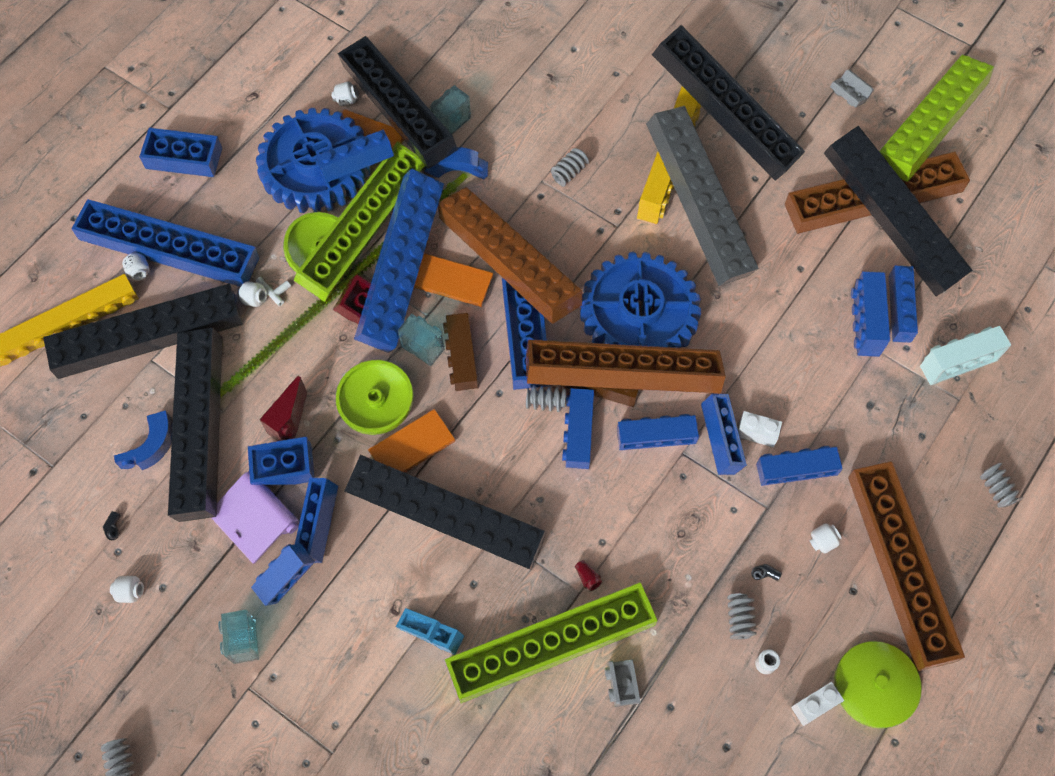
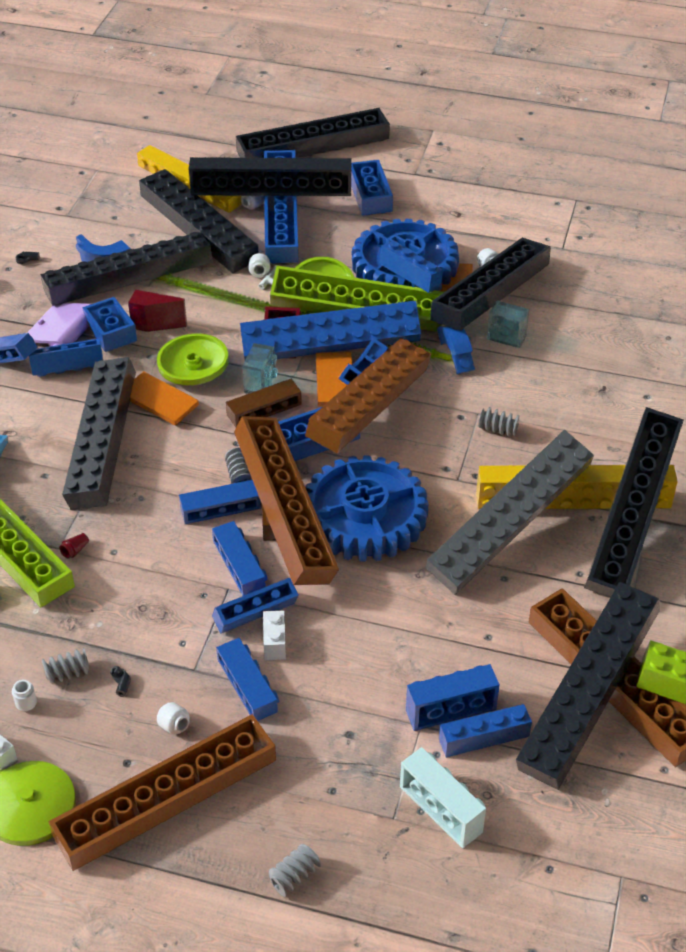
camera: 70 degrees right, 20 degrees down
(62, 178) = (317, 135): none -> black brick
(138, 235) = (270, 176): none -> black brick
(458, 250) = (371, 353): none -> blue arch

